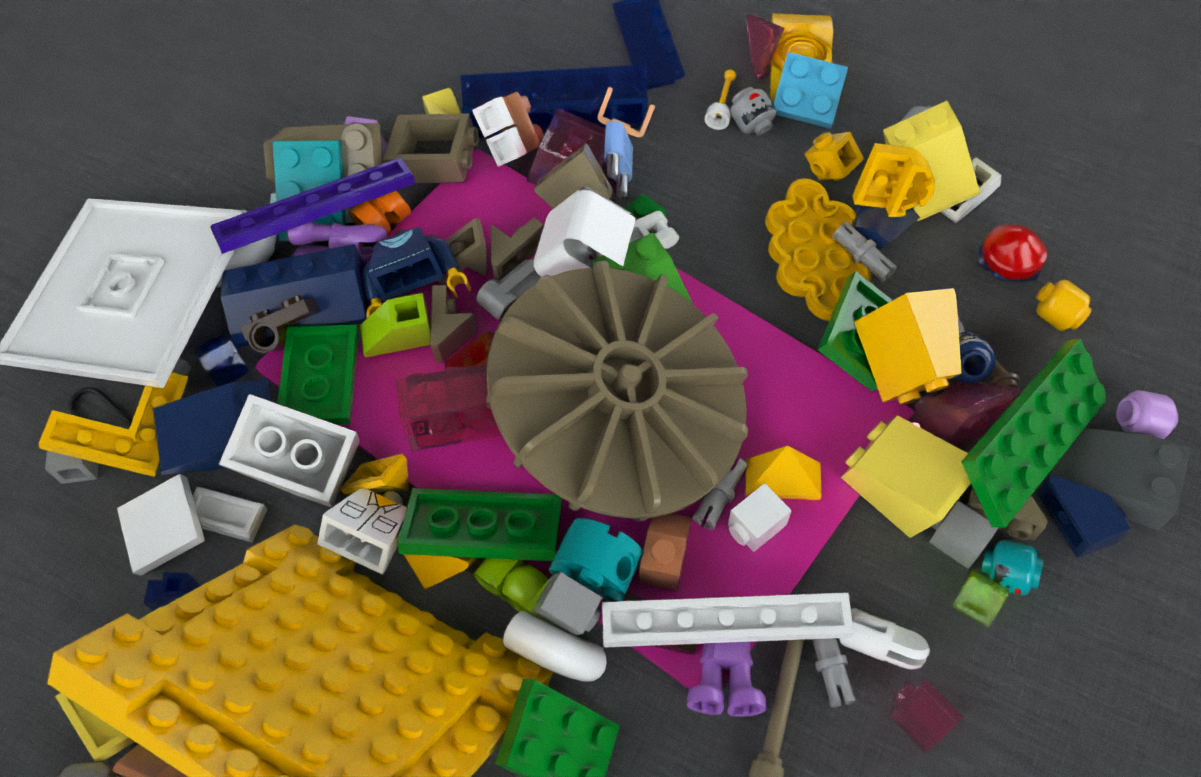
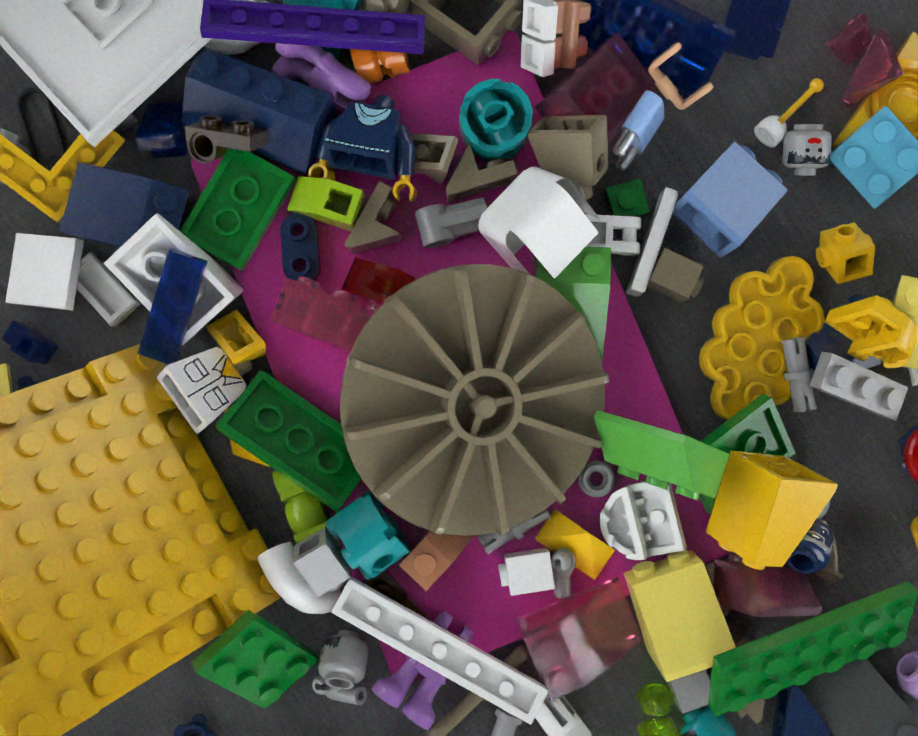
camera: 35 degrees right, 25 degrees up
(302, 467) = (172, 306): none -> clear blue tile
(385, 377) = (300, 247): none -> dark blue plate
(501, 198) = (495, 120): none -> teal brick
(643, 703) = (343, 660): none -> light grey head
(656, 742) = (355, 695): none -> light grey arm
(683, 226) = (652, 242): none -> white tile
(717, 240) = (676, 276): none -> dark tan brick
(718, 171) = (729, 200): none -> medium blue slope
(733, 37) = (851, 39): none -> clear pink slope
(763, 406) = (607, 479): none -> light grey plate
(786, 491) = (562, 564): none -> light grey arm
(797, 343) = (661, 456): none -> bright green slope
(825, 422) = (642, 521): none -> white slope
(841, 549) = (580, 636): none -> clear pink slope
(915, 234) = (858, 386): none -> light grey plate
(947, 568) = (655, 699): none -> clear neon green plate

